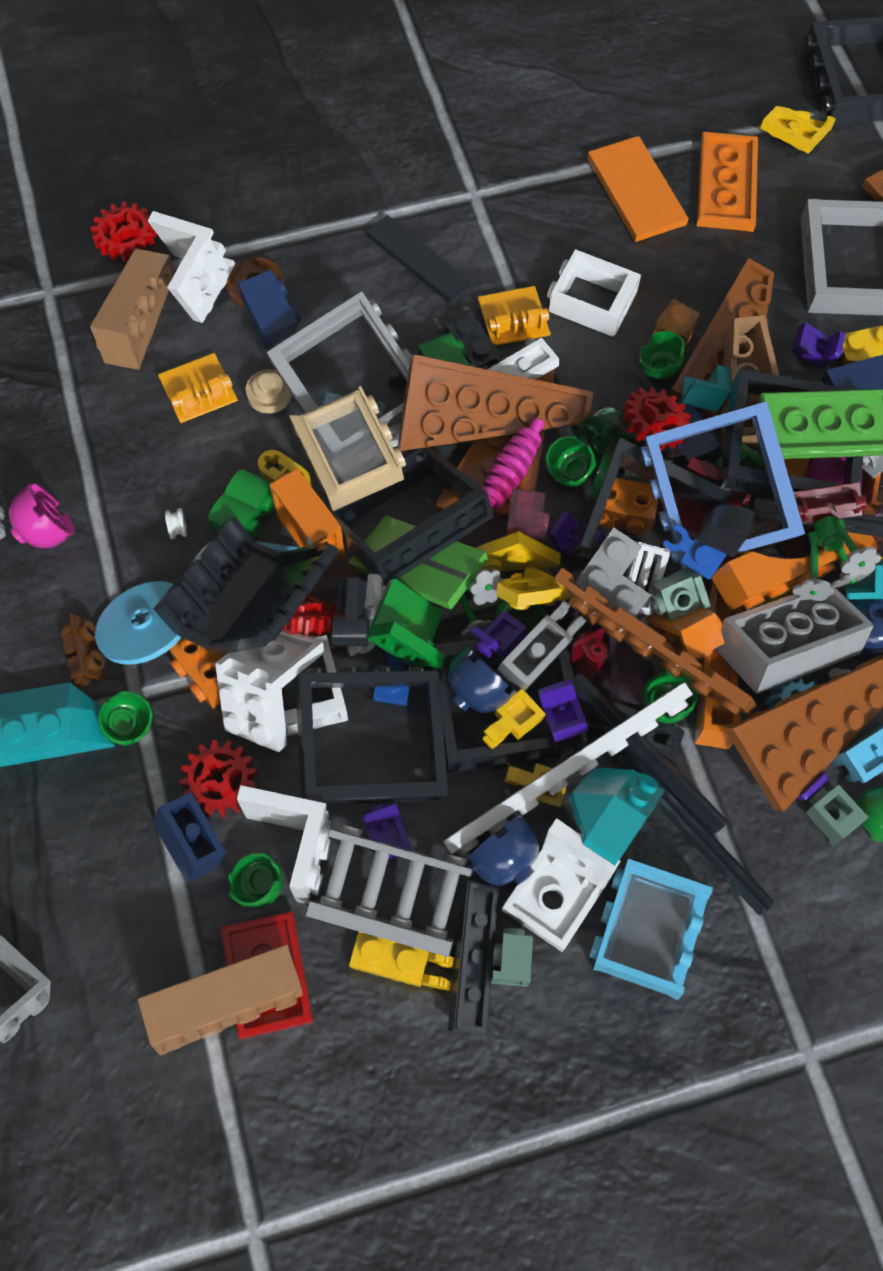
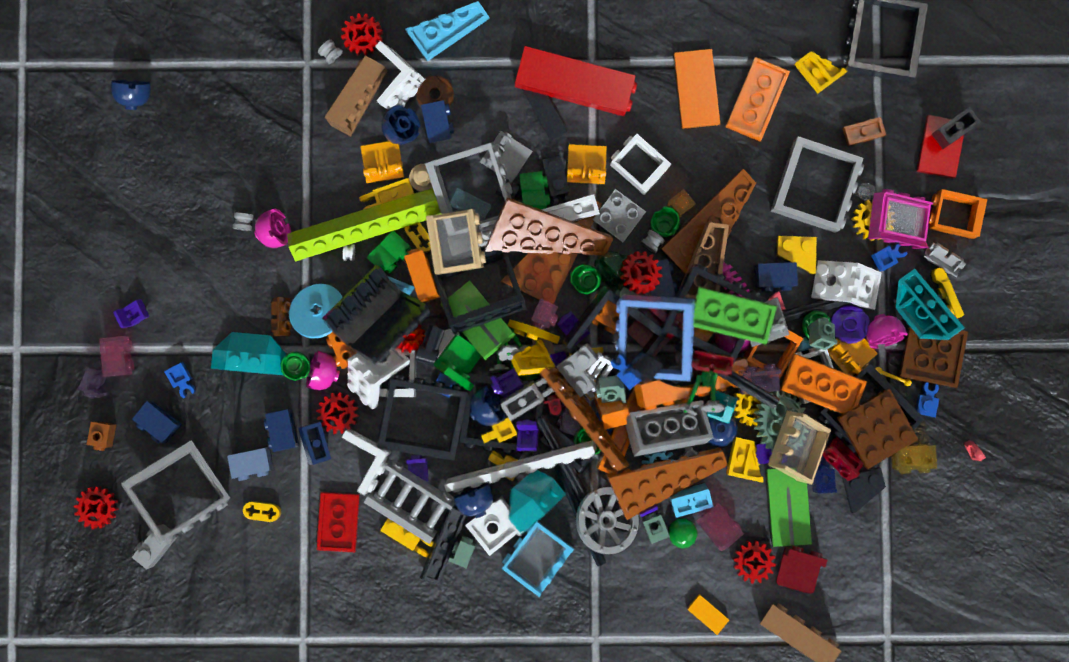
camera: 20 degrees right, 20 degrees up
(77, 910) = (249, 463): none -> sand blue brick
(80, 263) = (330, 52): none -> light grey wheel
(114, 987) = (262, 507): none -> yellow beam
(123, 836) = (281, 430): none -> dark blue brick
(175, 714) = (322, 371): none -> dark pink cylinder
(185, 476) = (363, 224): none -> lime brick
(212, 326) = (400, 125): none -> dark blue cylinder
(218, 429) = (389, 192): none -> yellow hinge
(220, 1000) = (311, 533): medium nougat wedge -> none
(250, 199) = (440, 33): none -> medium azure wing
(256, 880) = (343, 475): green hair -> none
(374, 594) = (445, 338): clear tile -> none
(405, 325) = (512, 155): none -> light grey hinge
(461, 213) = (575, 81): none -> red brick
(512, 463) = (547, 276): dark pink piece -> none
(589, 363) = (619, 215): none -> light grey hinge
(654, 378) = (652, 241): none -> light grey wheel
(709, 393) = (679, 258): teal panel -> none
(746, 828) = (610, 523): none -> light grey wheel
(816, 346) = (763, 240): dark purple bracket -> none

